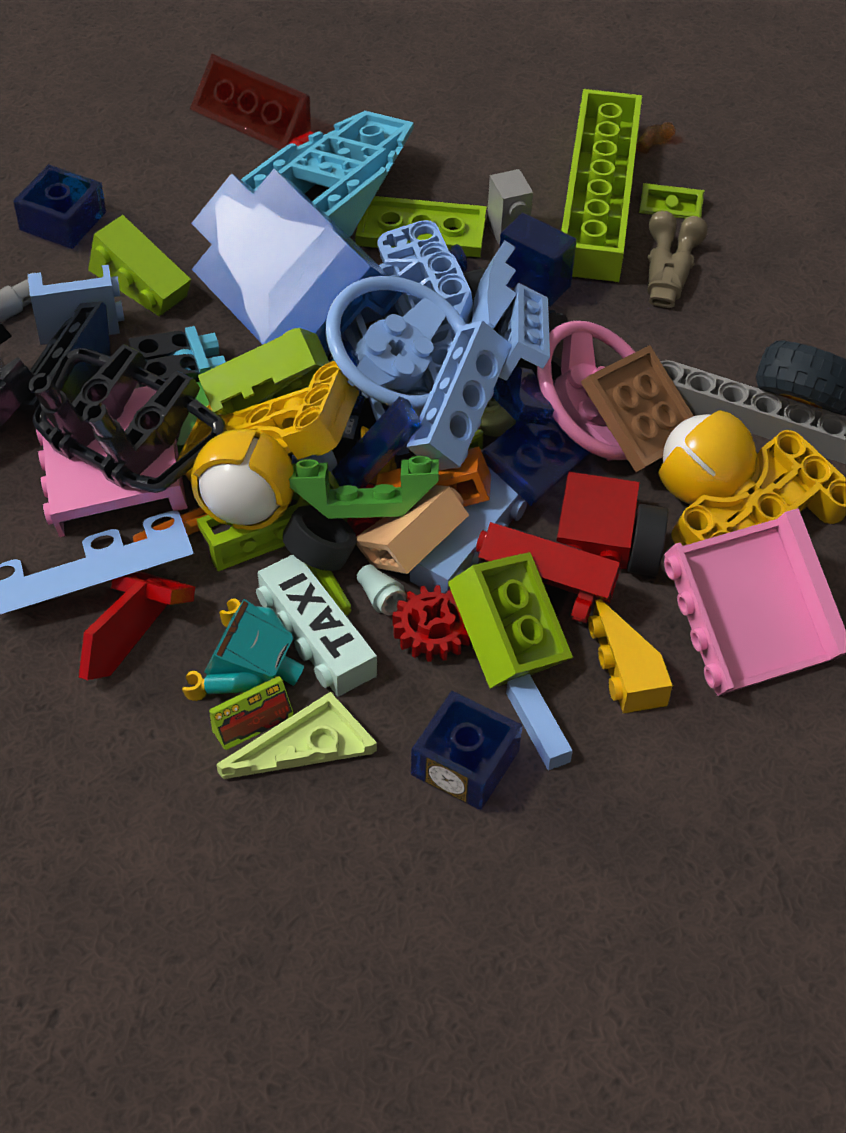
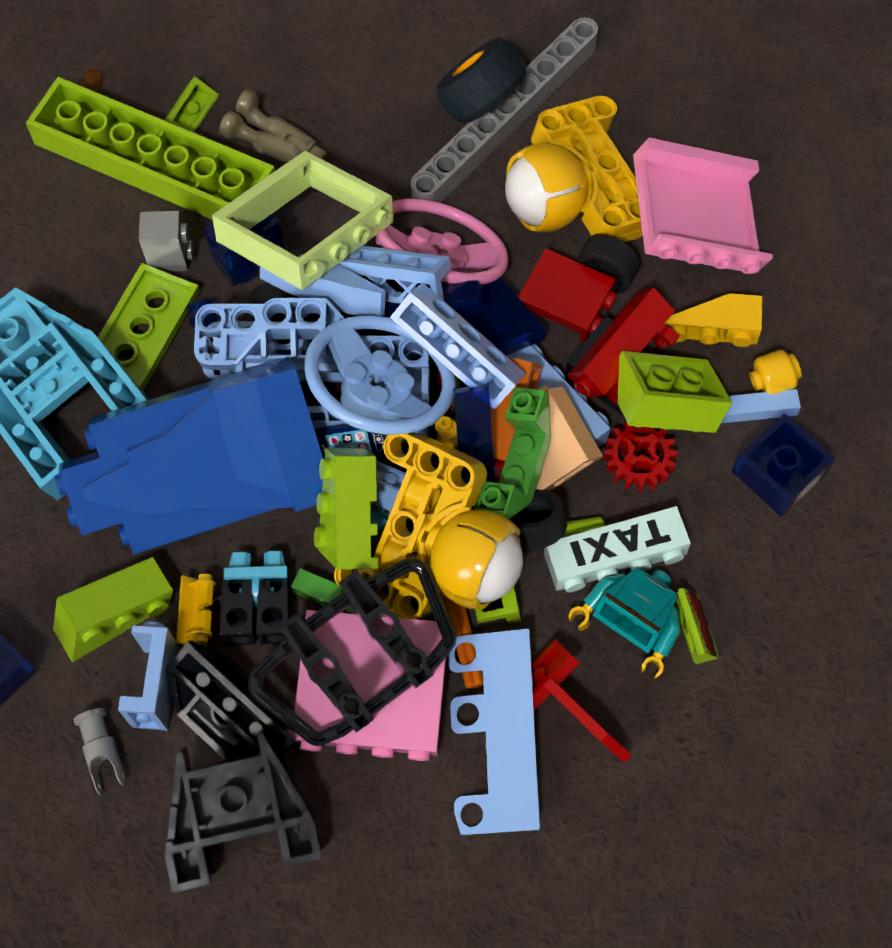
camera: 70 degrees left, 15 degrees up
(151, 323) = (194, 609): none -> yellow hinge
(311, 736) = (729, 580): yellowish green wing -> none
(381, 589) = (590, 487): light aqua cone -> none
(563, 234) = (236, 219): none -> yellowish green window
(585, 726) = (775, 372): none -> yellow head
(638, 405) = (469, 216): medium nougat plate -> none

